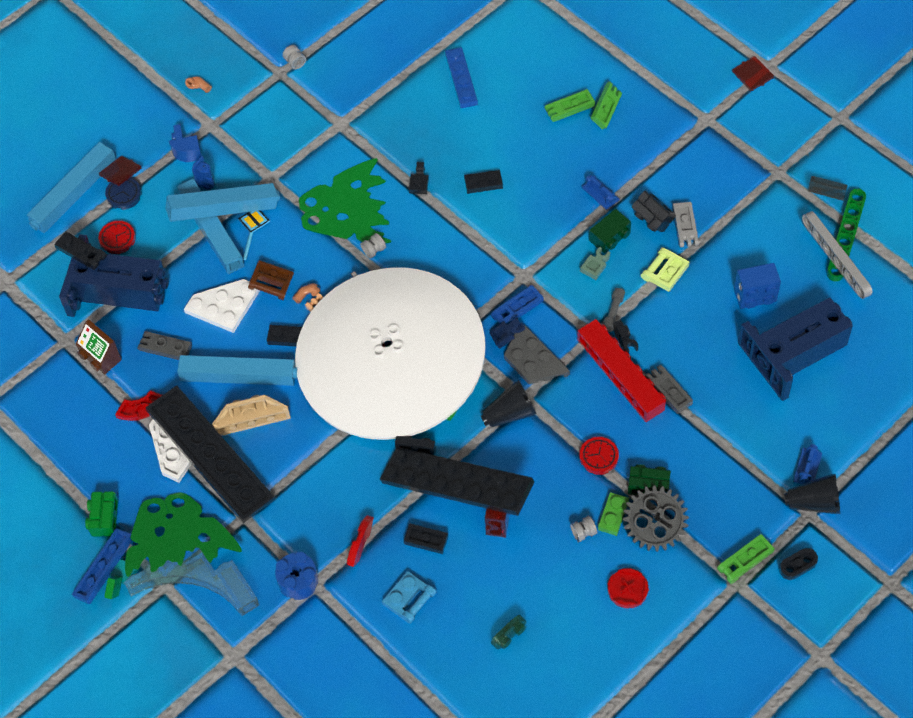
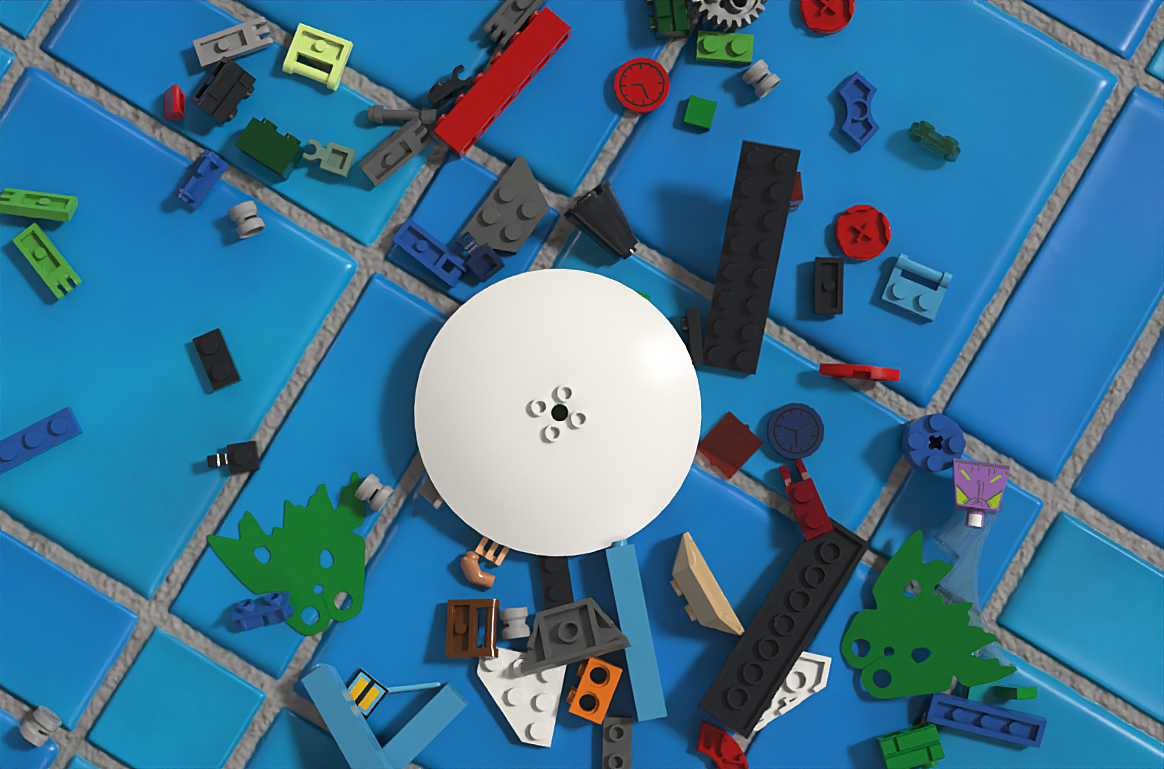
camera: 110 degrees left, 25 degrees up
(207, 342) = (601, 691): none -> orange brick
(247, 331) = (571, 635): none -> dark grey wing
(254, 587) = (978, 489): none -> medium lavender torso
(267, 304) = (514, 622): none -> light grey wheel
(285, 487) = (806, 503): none -> dark red hinge
(322, 175) = (250, 612): none -> blue hinge
(334, 496) = (795, 431): none -> dark blue tile
(338, 455) = (729, 445): none -> clear red piece
(457, 572) = (862, 232): none -> red tile
(538, 589) = (857, 99): none -> blue tile
(568, 212) = (246, 219): none -> light grey wheel
(570, 487) = (700, 112): none -> green tile
(589, 298) = (395, 151): none -> dark grey hinge
(653, 187) = (174, 103): none -> slope

